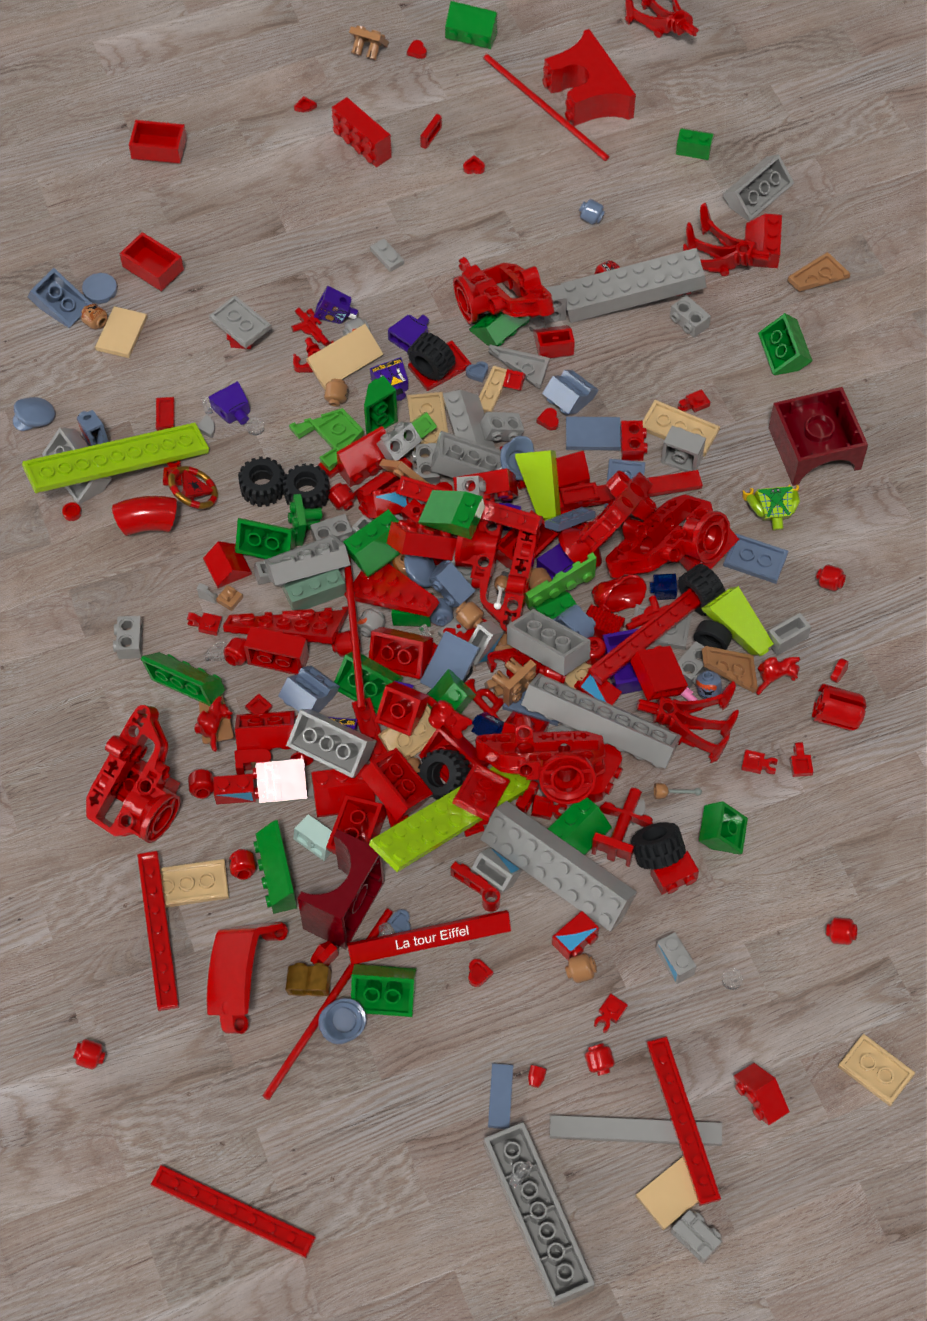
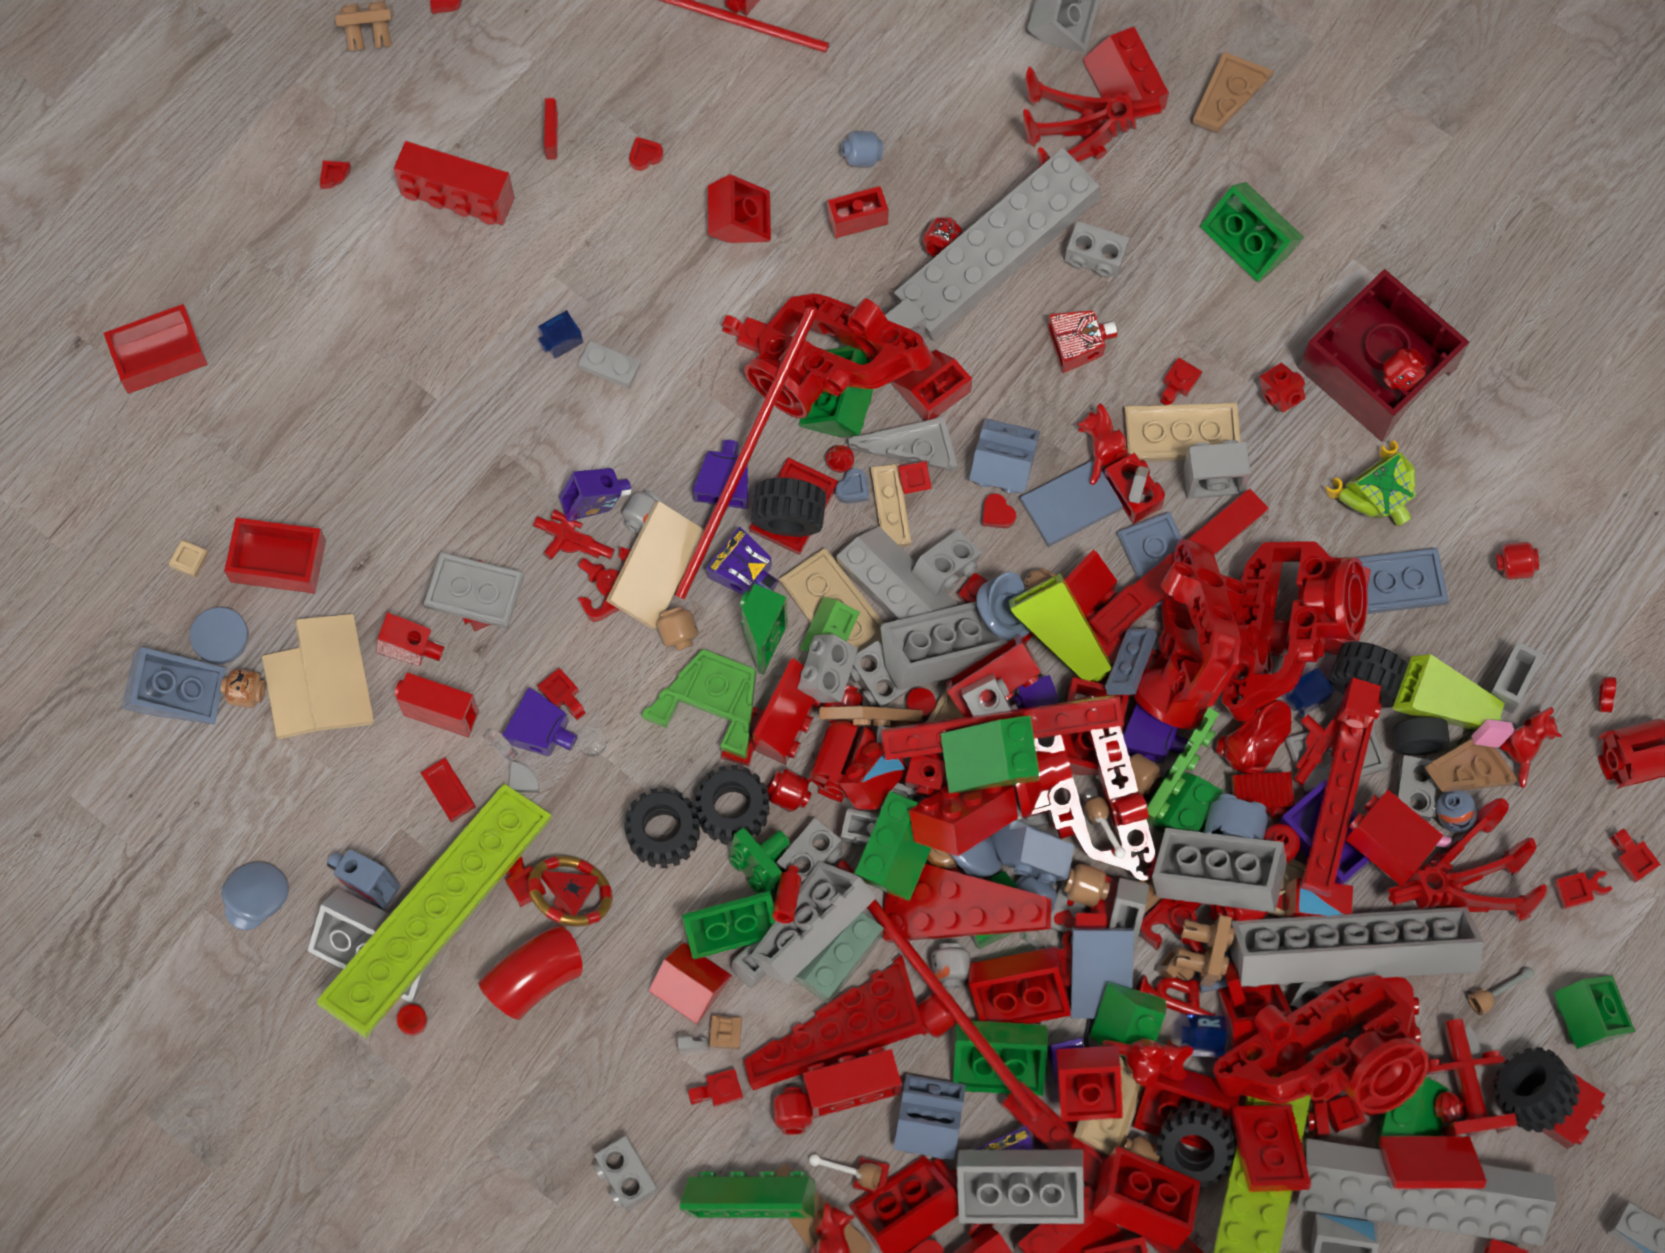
camera: 30 degrees left, 10 degrees up
(109, 246) = (188, 558): none -> tan tile
(144, 330) = (334, 672): none -> tan tile
(185, 367) = (437, 704): none -> red brick
(189, 330) = (396, 638): none -> red torso
(252, 698) = (867, 1174): none -> hinge
(254, 394) = (561, 691): none -> red plate
(302, 539) = (787, 895): none -> red cylinder
(369, 228) = (559, 335): none -> clear blue brick
(424, 318) = (746, 453): none -> red piece
(459, 631) = (1090, 920): none -> red tile
(479, 353) = (840, 458): none -> red plate
(505, 212) = (738, 211): none -> red slope
(519, 710) = (1234, 985): none -> red tile
(568, 239) = (858, 212): none -> red brick
(568, 846) = (1432, 1162): none -> red tile
(603, 828) = (1448, 1107): none -> red plate
(631, 410) = (1108, 444): none -> red animal
(633, 434) = (1138, 484): none -> light grey tile
(651, 354) = (1079, 337): none -> red torso
(683, 596) = (1360, 703): none -> red brick
(750, 428) = (1282, 387): none -> red brick
(755, 654) = (1492, 733): none -> bright pink tile
(819, 439) = (1404, 369): none -> red head

